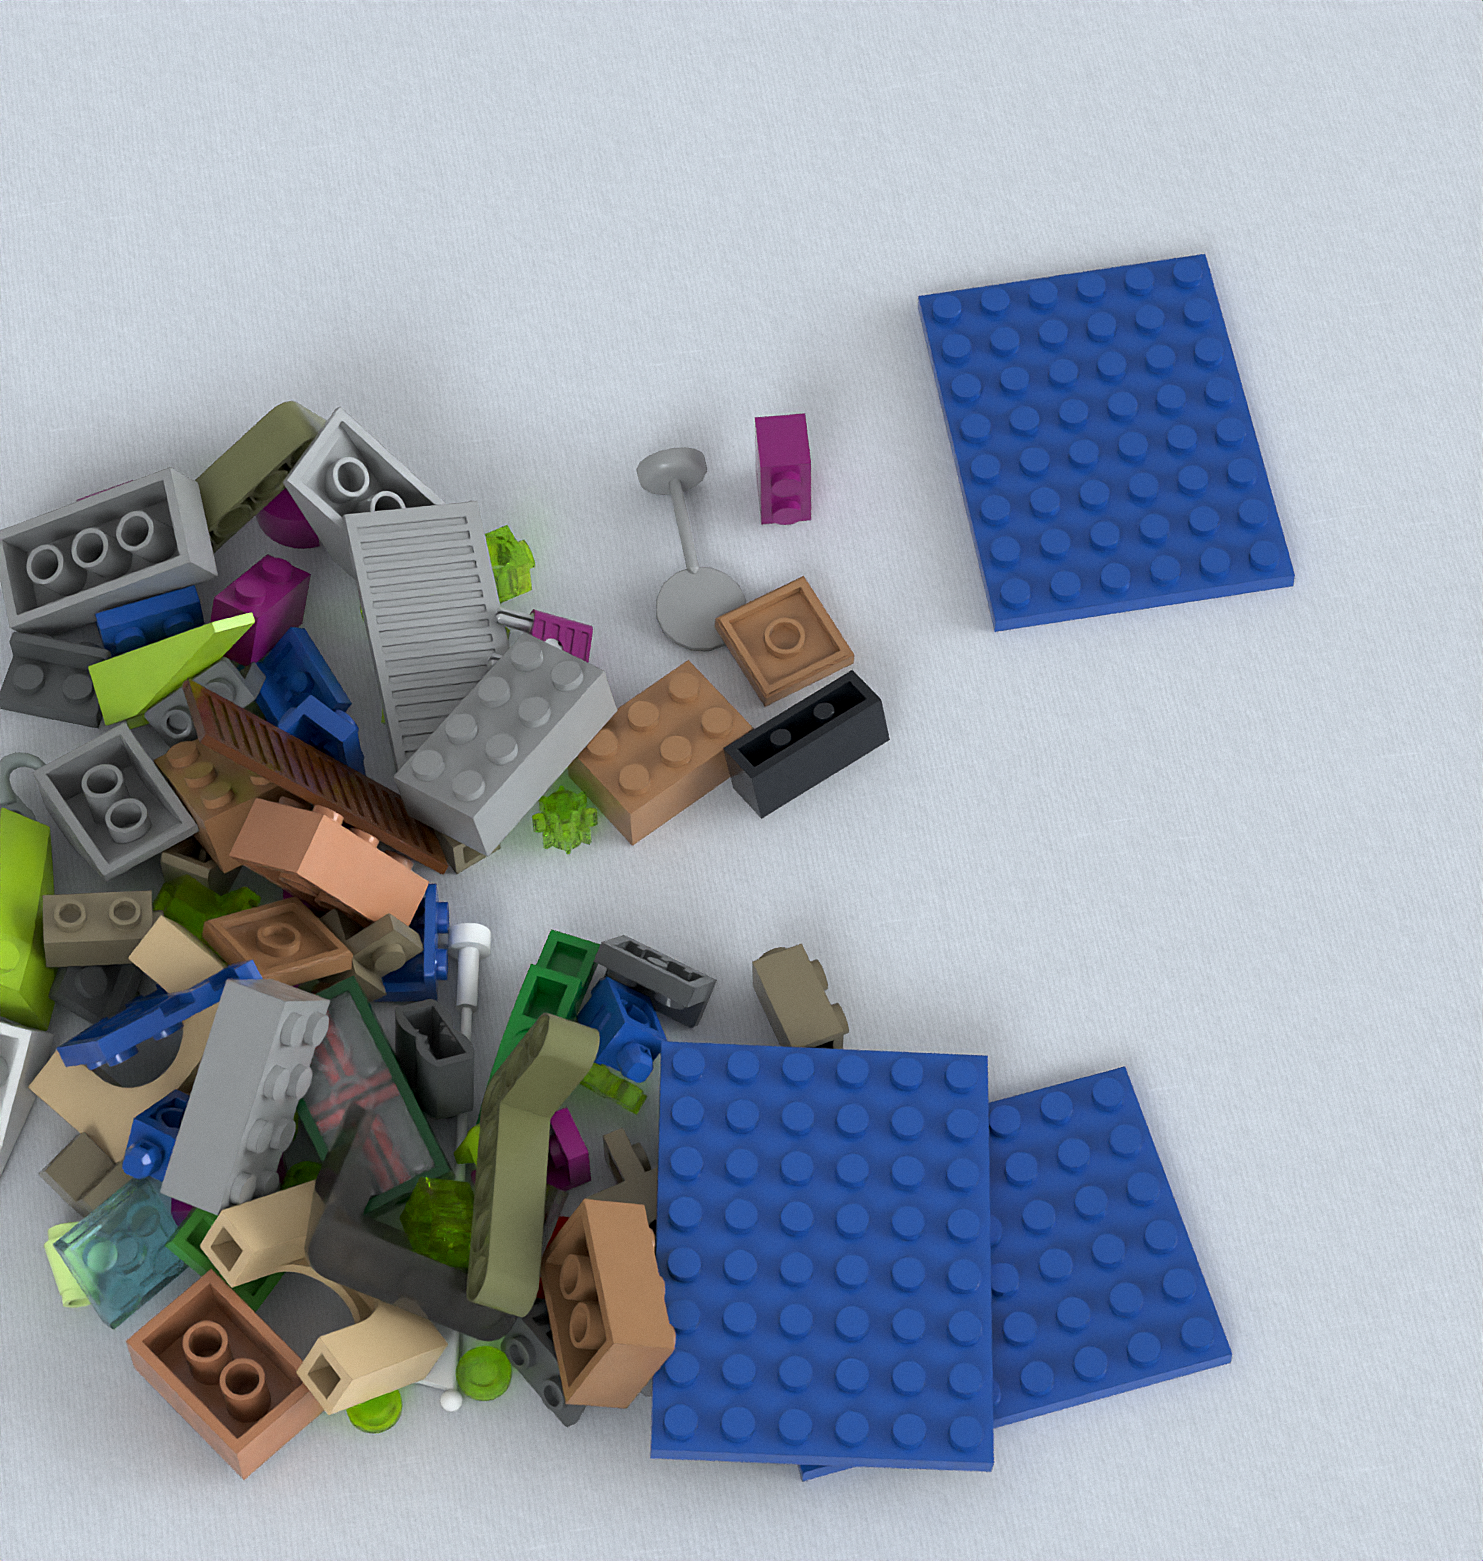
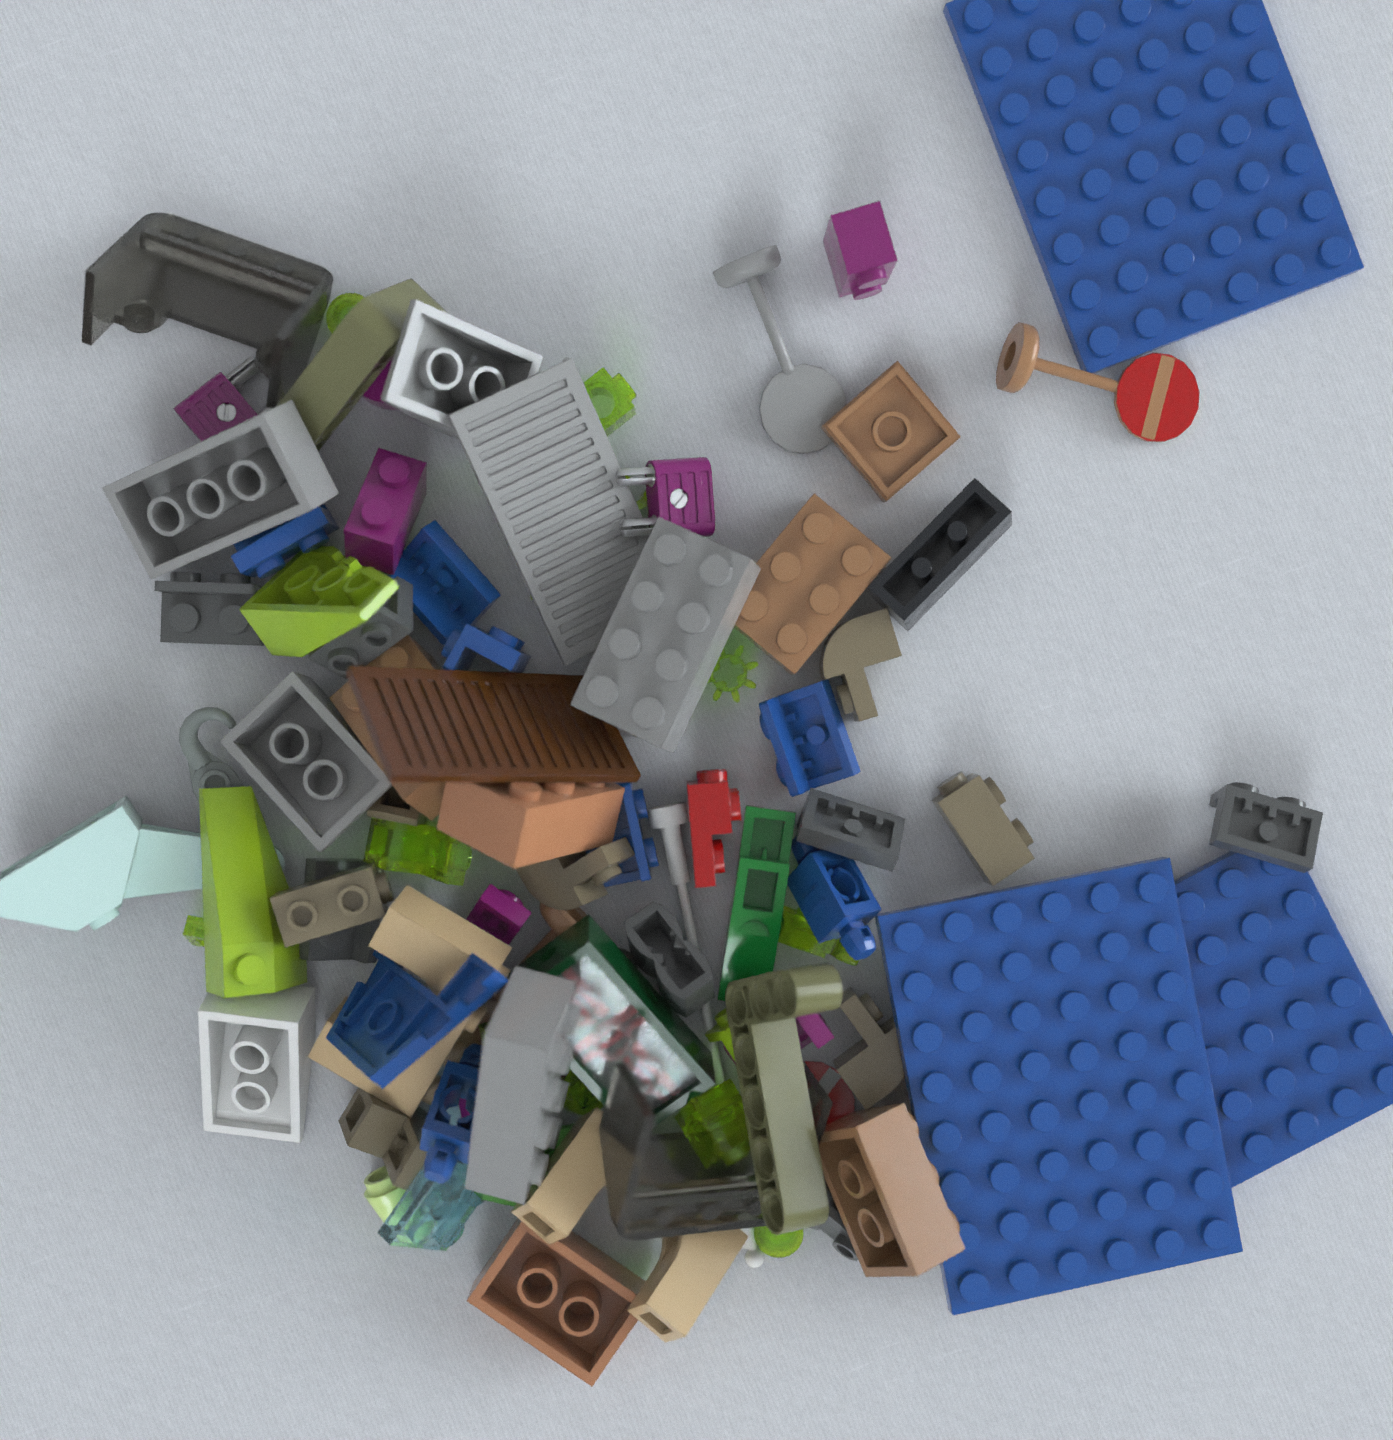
camera: 10 degrees left, 30 degrees up
(131, 403) = (214, 284): none -> clear smoke windscreen
(282, 941) = (502, 905): medium nougat tile -> none
(509, 938) = (711, 813): none -> red plate
(633, 890) = (808, 738): none -> blue bracket
(702, 820) = (850, 649): none -> dark tan brick
(1056, 654) = (1152, 397): none -> piece
(1097, 1048) = (1265, 826): none -> dark grey bracket

